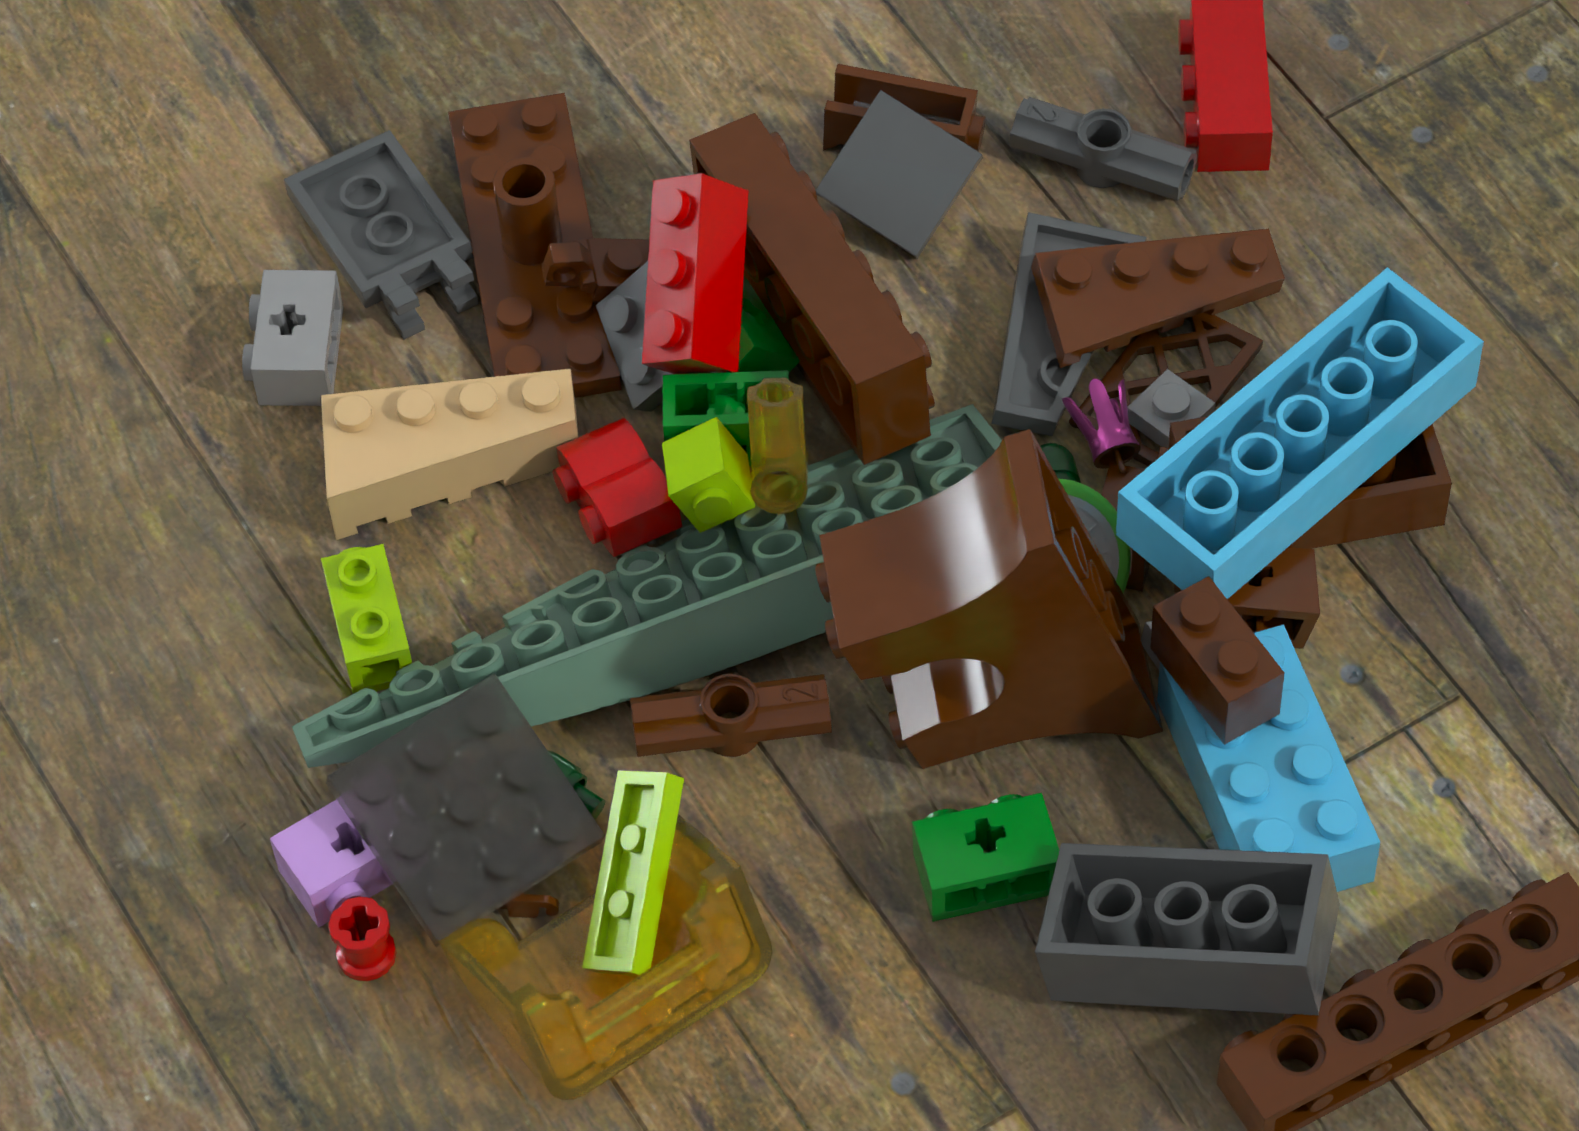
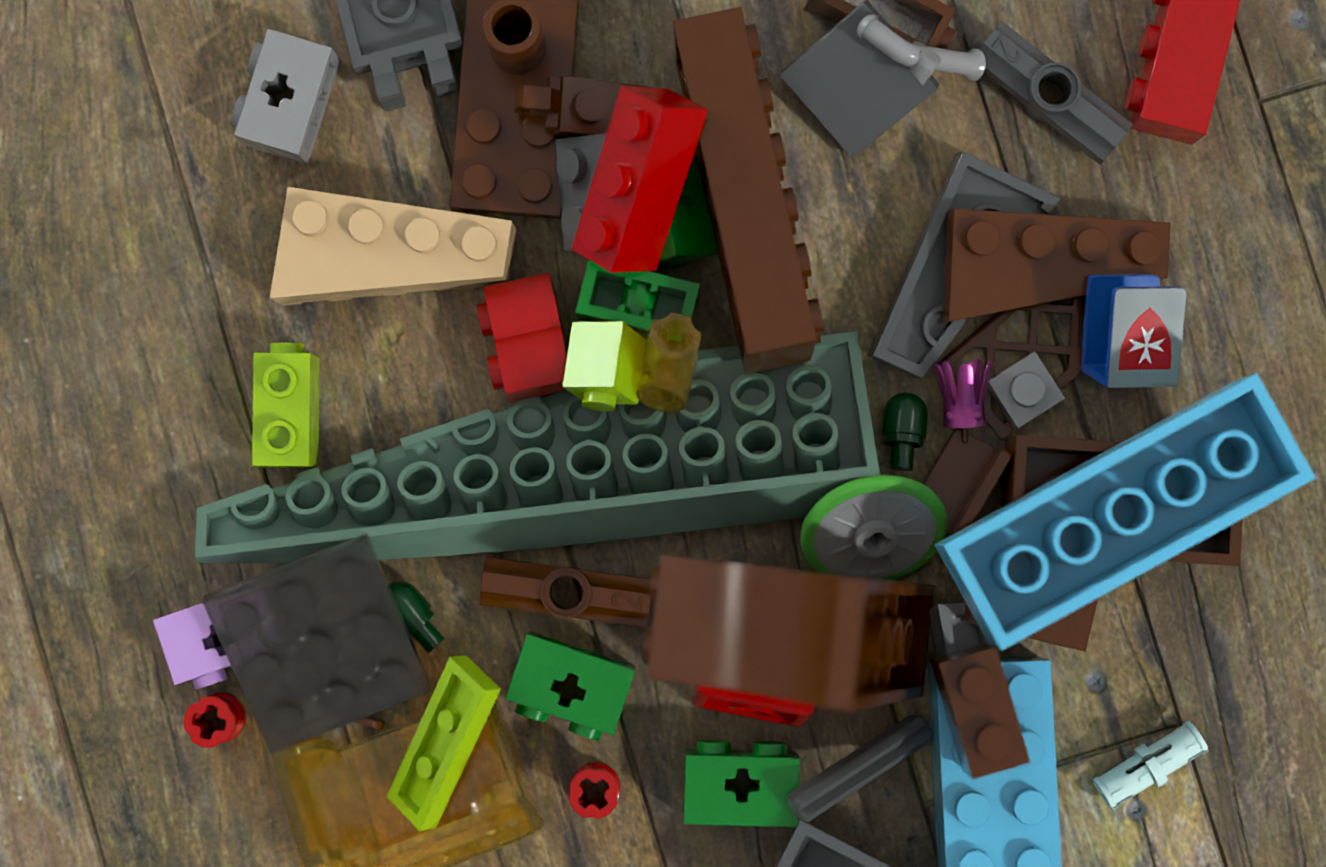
camera: 15 degrees right, 30 degrees up
(789, 785) = (549, 660): none -> green brick
(820, 903) = (594, 807): none -> red bush
(969, 747) = (752, 706): none -> red tile
(1008, 137) = (917, 56): none -> light grey piece
(1112, 793) = (859, 768): none -> dark grey axle
(1257, 310) = (1132, 331): none -> piece
(1438, 725) = (1150, 765): none -> light aqua pin

